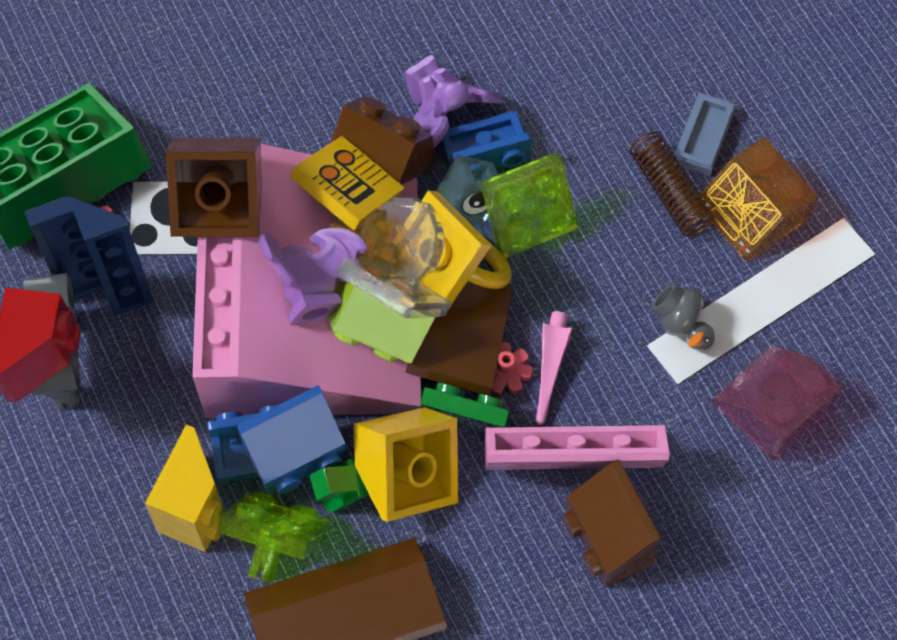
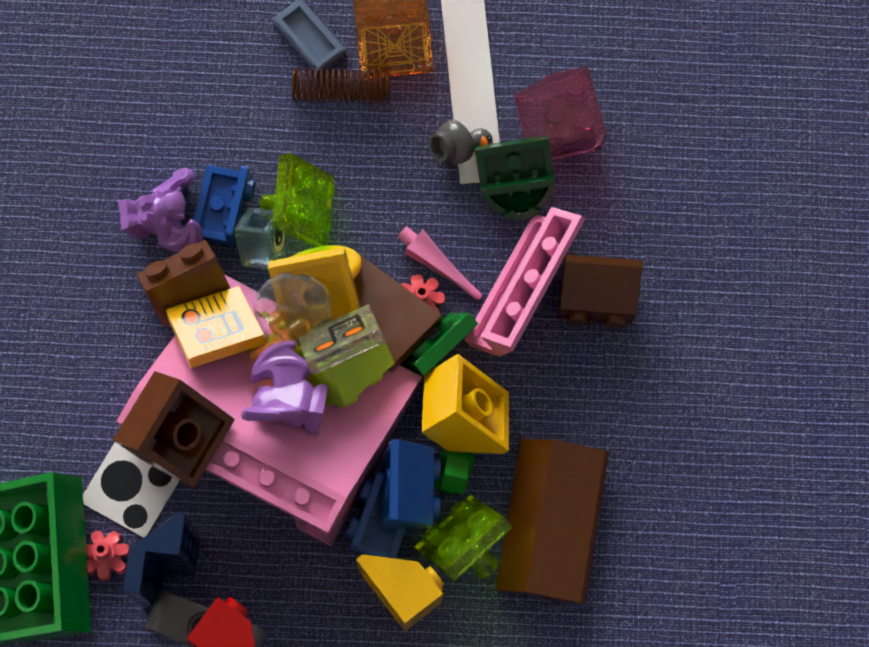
camera: 65 degrees left, 10 degrees up
(683, 386) = (516, 176): none -> dark green slope

